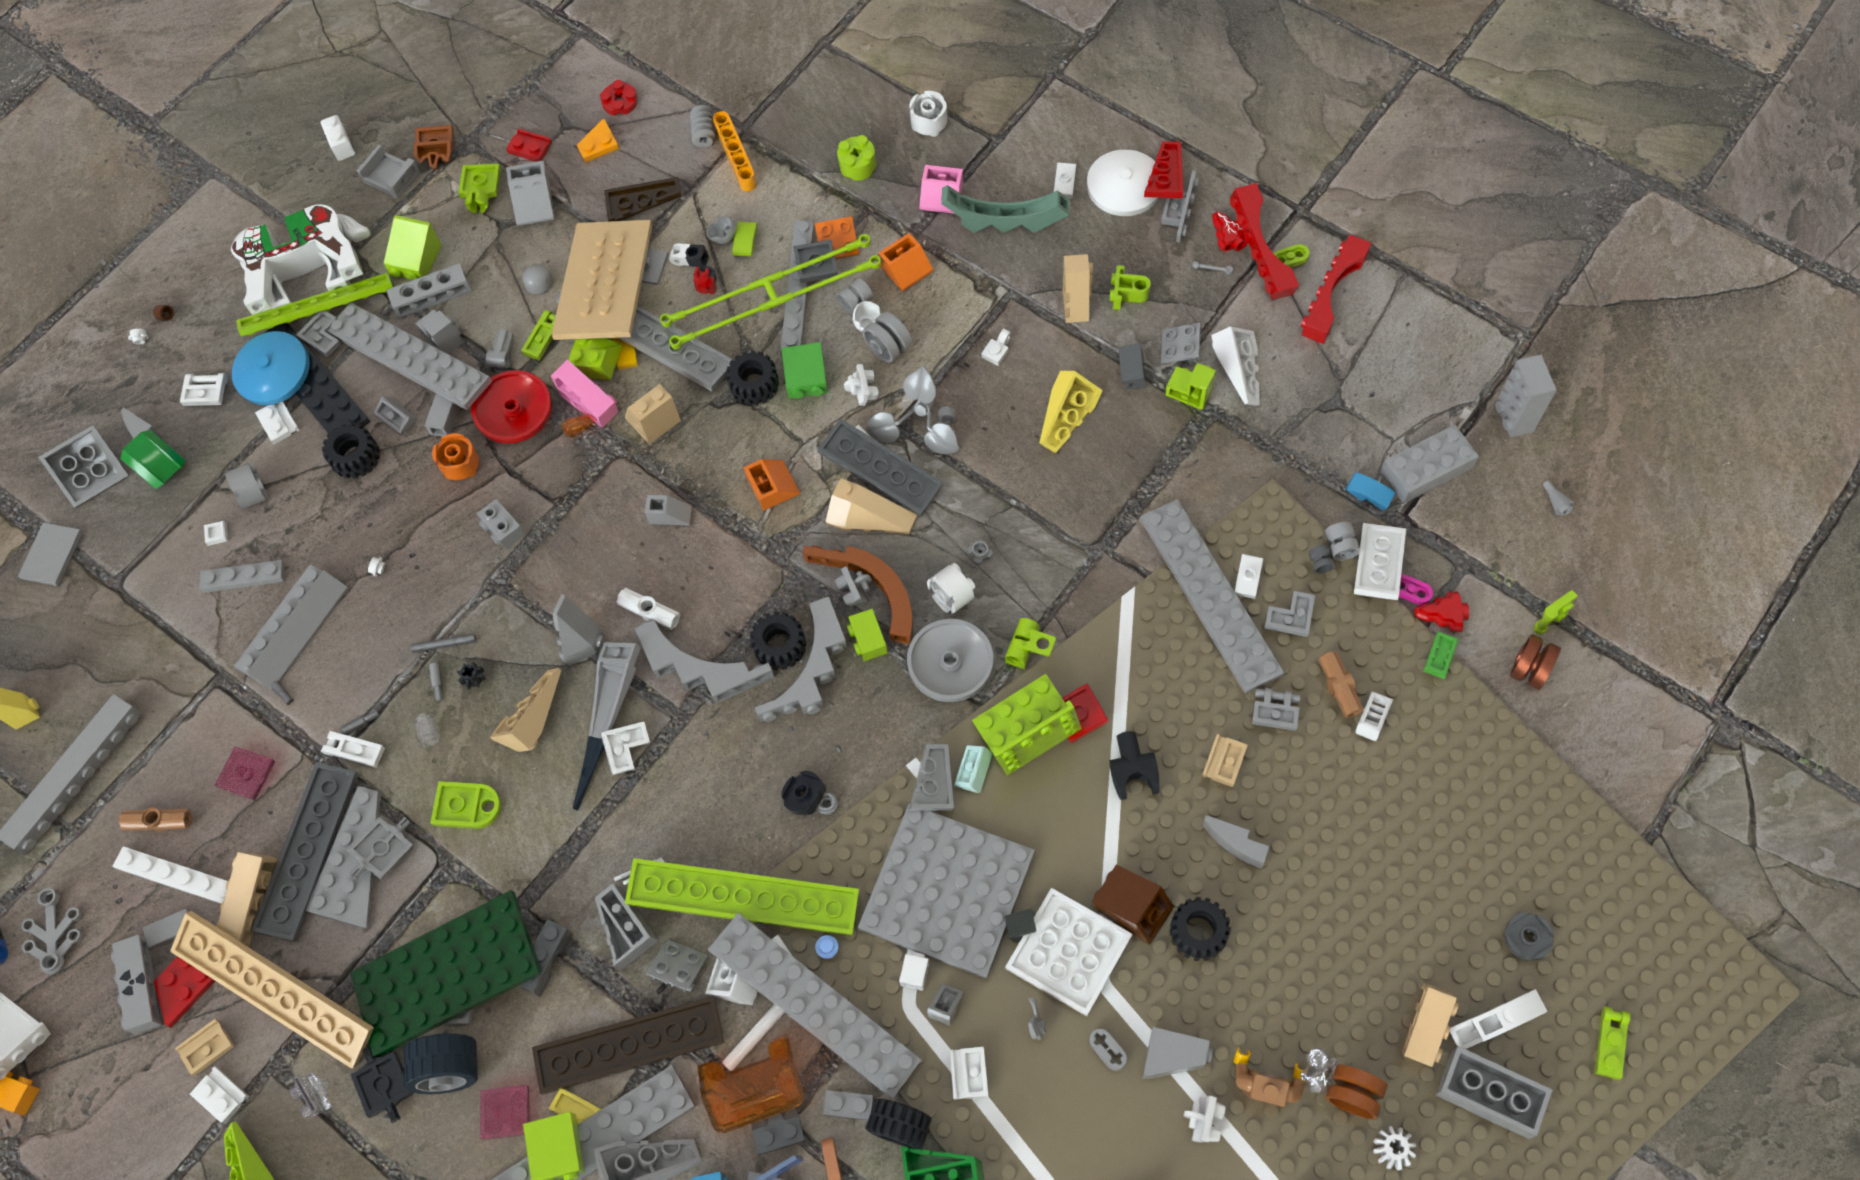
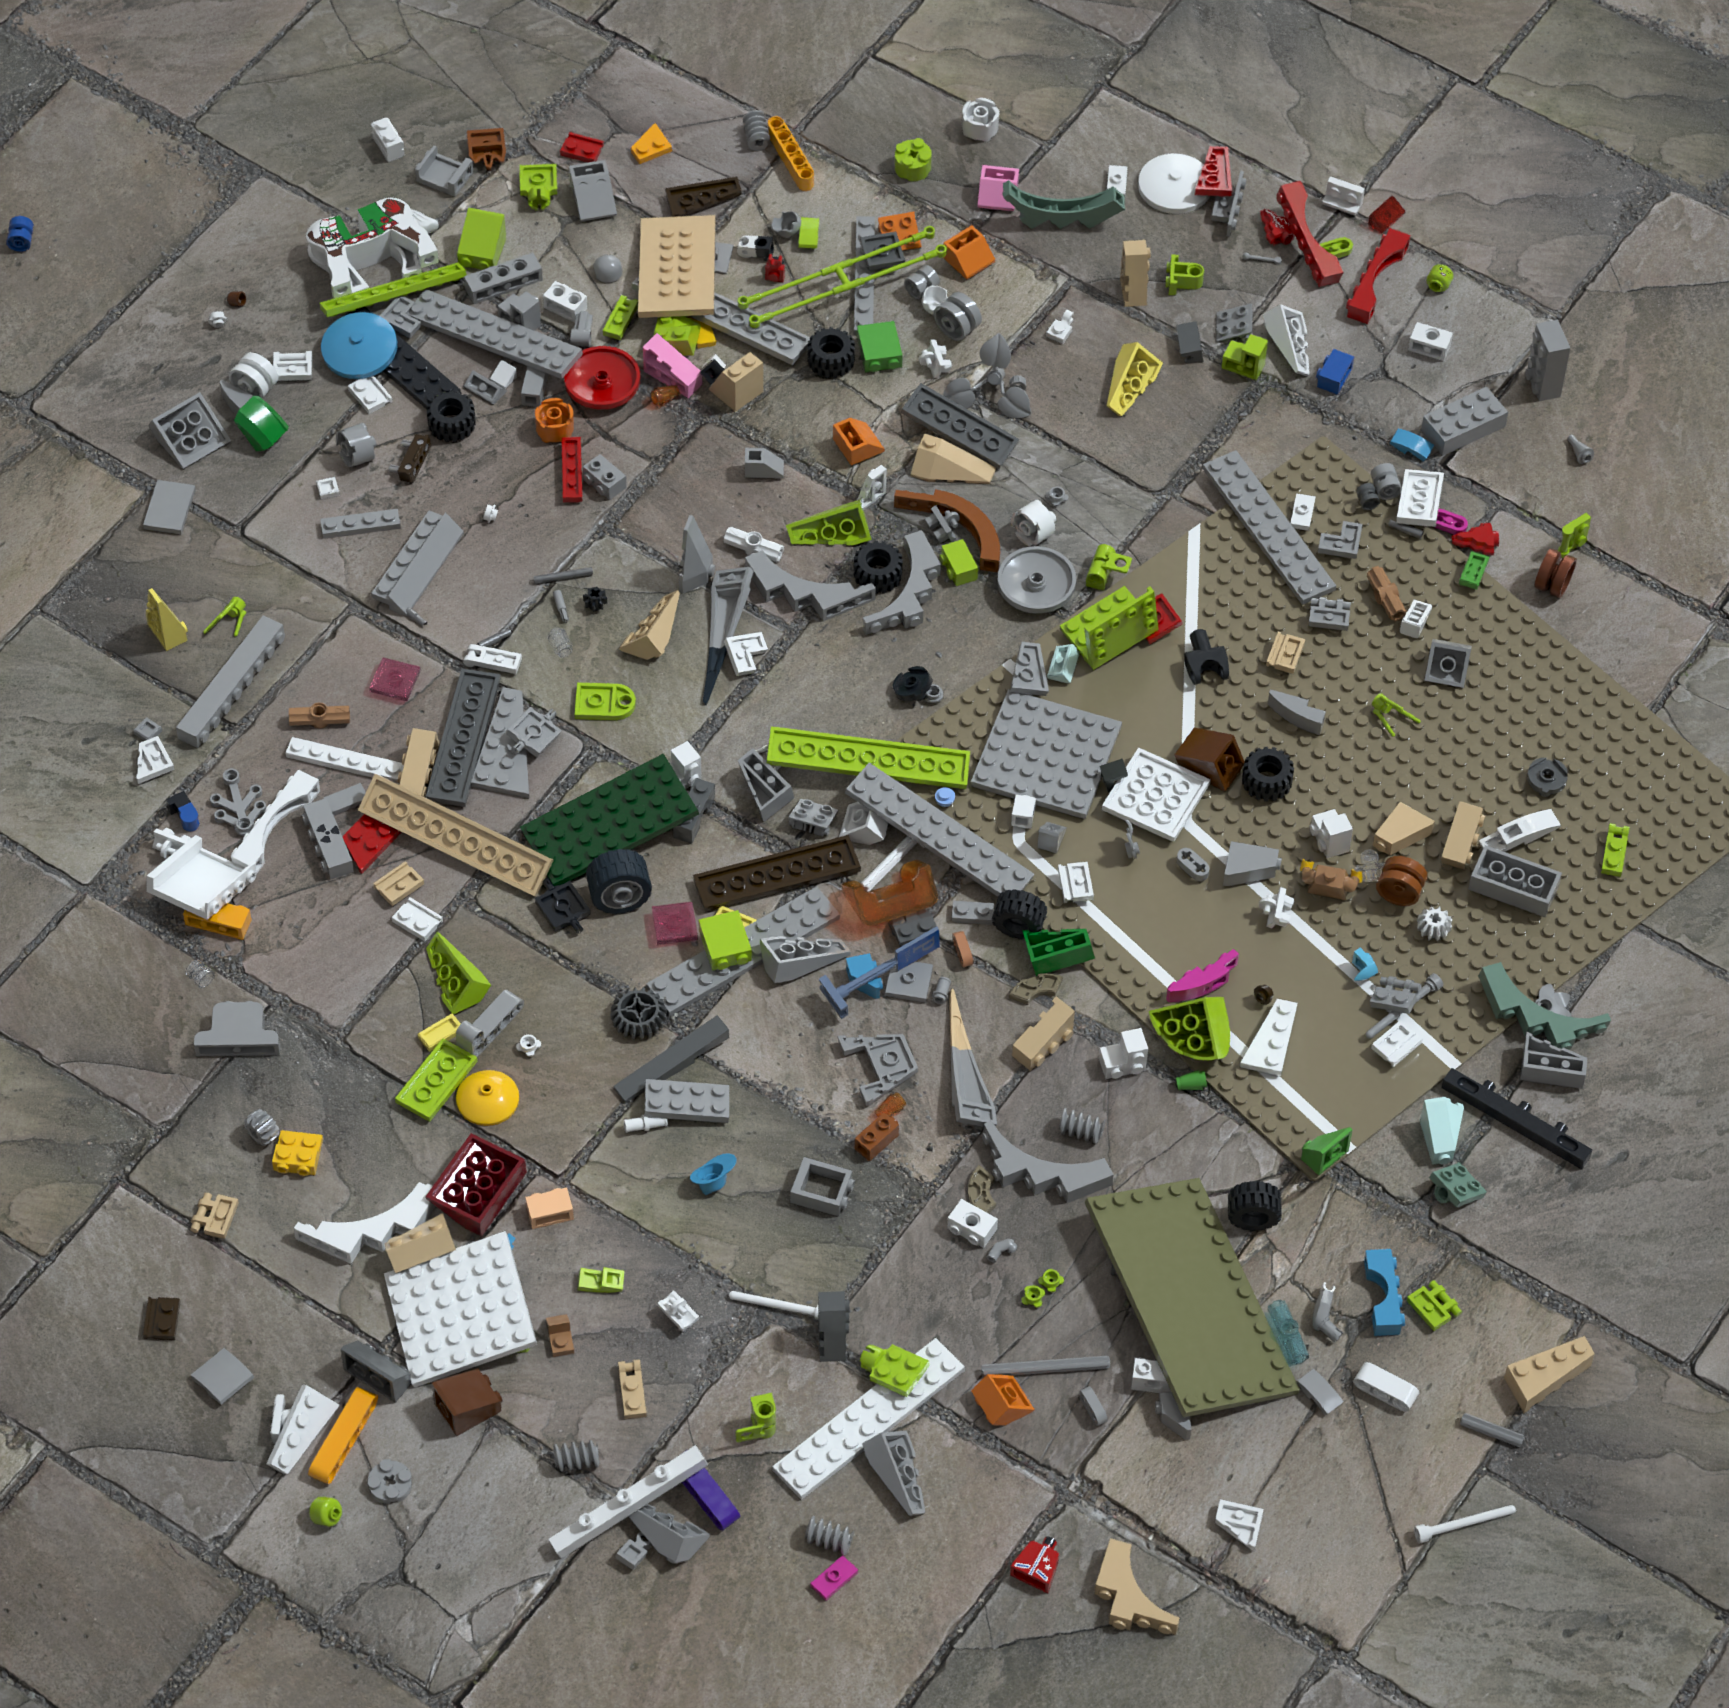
camera: 10 degrees left, 10 degrees down
(53, 998) = (299, 791): none -> white arch
(91, 680) = (233, 609): none -> lime plant
(155, 405) = (254, 375): none -> white wheel
(307, 499) = (413, 458): none -> dark brown piece
(313, 1092) = (505, 921): clear hips -> none
(415, 401) = (504, 374): none -> white slope
(467, 519) = (572, 469): none -> red plate
(484, 313) = (564, 301): none -> white brick
(536, 903) = (686, 764): none -> white brick
(615, 90) = (667, 96): red plate -> none
(627, 395) = (712, 368): none -> black leg
(739, 586) = (834, 526): none -> lime wedge
(780, 542) = (873, 487): none -> white wing
(1272, 1014) = (1332, 832): none -> white brick
(1287, 402) = (1335, 371): none -> blue piece
(1300, 197) = (1343, 196): none -> white bracket
(1336, 833) = (1384, 705): none -> lime plant
(1345, 217) = (1386, 214): none -> clear red slope
(1356, 1009) = (1402, 829): none -> tan slope
(1365, 600) = (1406, 529): none -> flat silver pin
(1398, 374) = (1430, 341): none -> white brick
(1402, 291) = (1439, 278): none -> lime head
(1411, 778) = (1448, 663): none -> light grey slope

